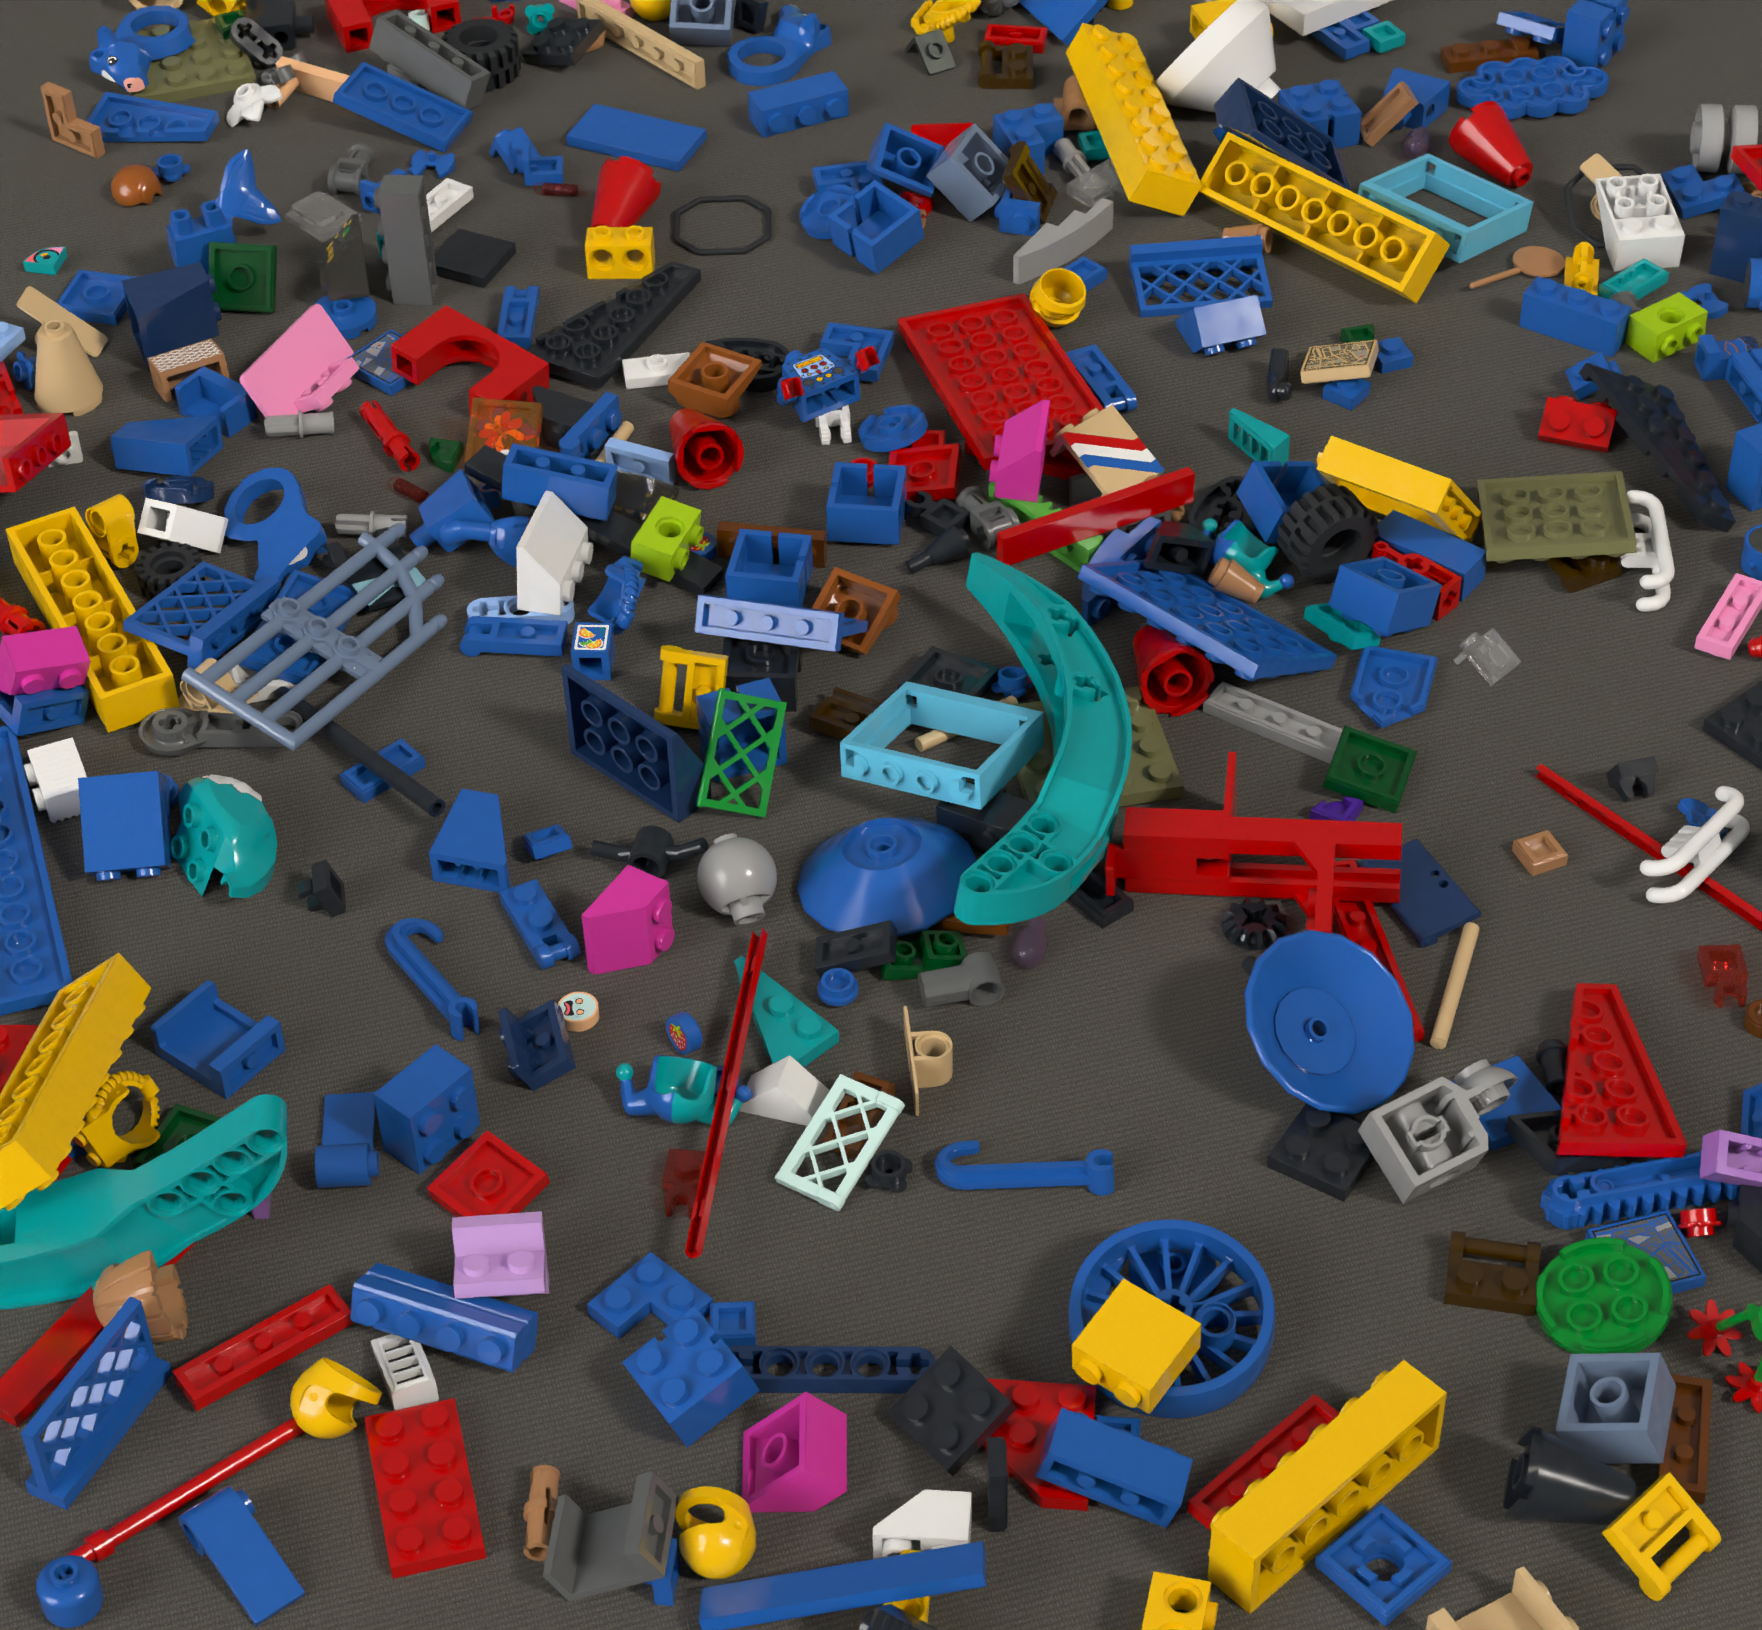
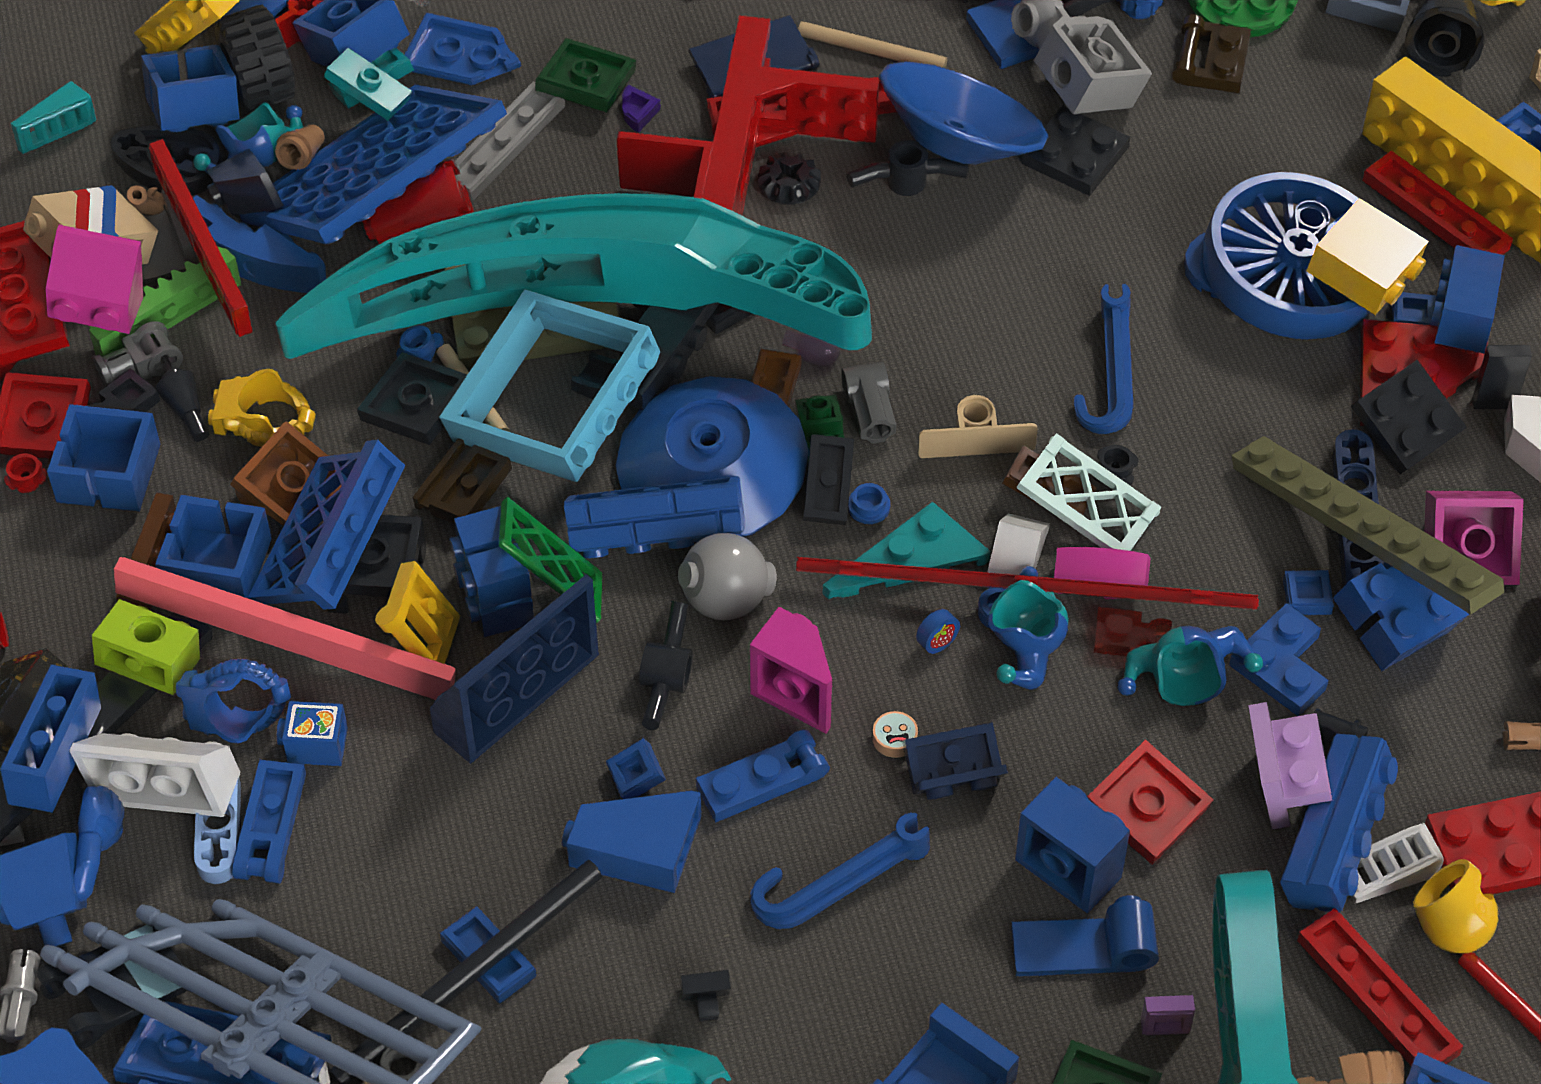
camera: 90 degrees left, 10 degrees up
(552, 1340) = (1333, 725): none -> black pin
(636, 1211) = (1188, 663): none -> teal piece
(685, 604) = (282, 629): none -> coral tile
(749, 1153) = (1102, 565): none -> dark pink slope
(768, 1327) = (1369, 525): none -> olive plate
(803, 827) = (653, 515): none -> blue brick
(931, 575) = (241, 393): none -> yellow piece
(1304, 605) = (368, 84): none -> plate

